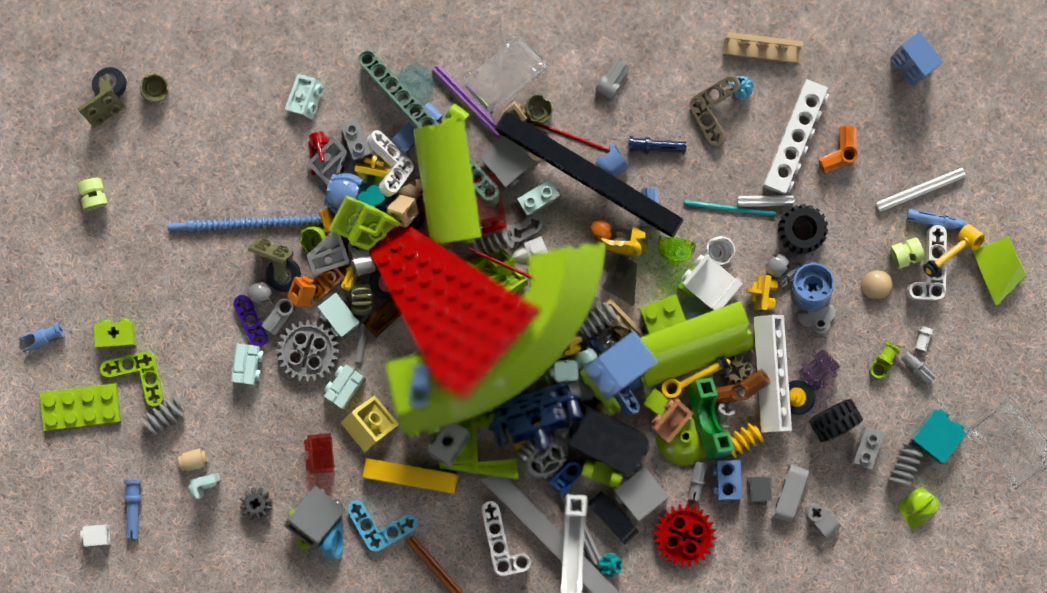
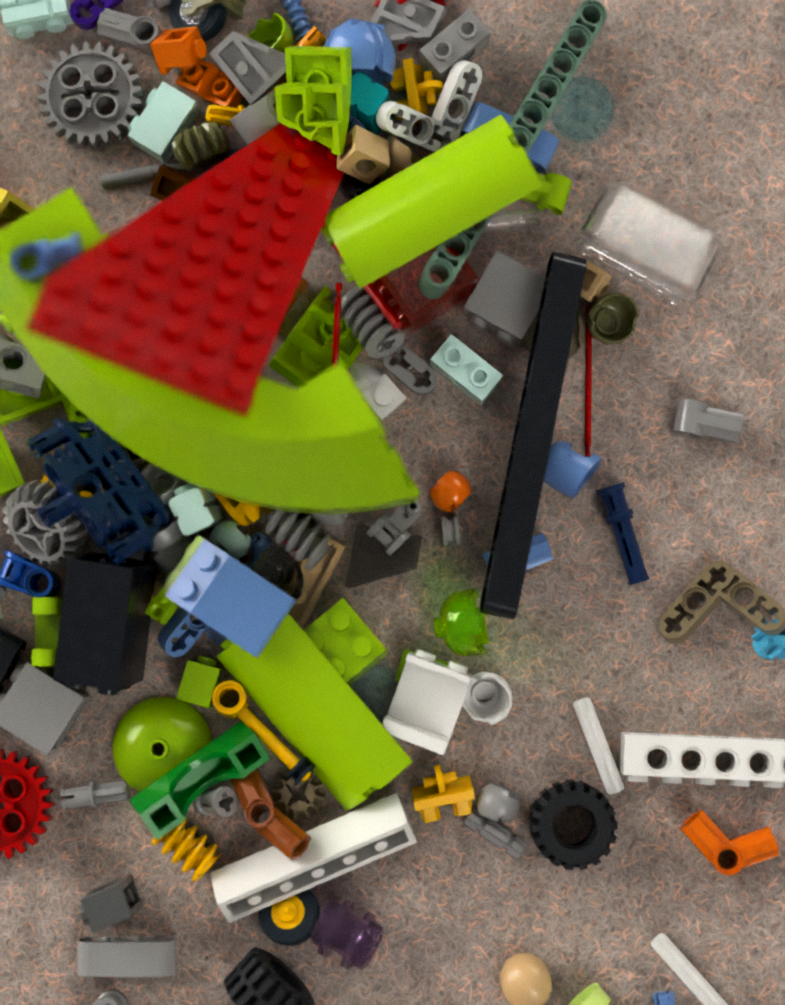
camera: 80 degrees right, 0 degrees up
(344, 386) = (52, 171): light aqua brick -> none
(466, 100) = (587, 193): medium lavender axle -> none
(610, 266) = (395, 526): none -> light grey piece
(631, 248) = (437, 549): yellow hair -> none
(671, 420) = (175, 715): nougat bracket -> none
(729, 208) = (564, 690): teal axle -> none
(733, 479) = (116, 850): medium blue brick -> none
(809, 277) = (500, 873): medium blue wheel -> none
(810, 319) = (440, 895): light grey plate -> none

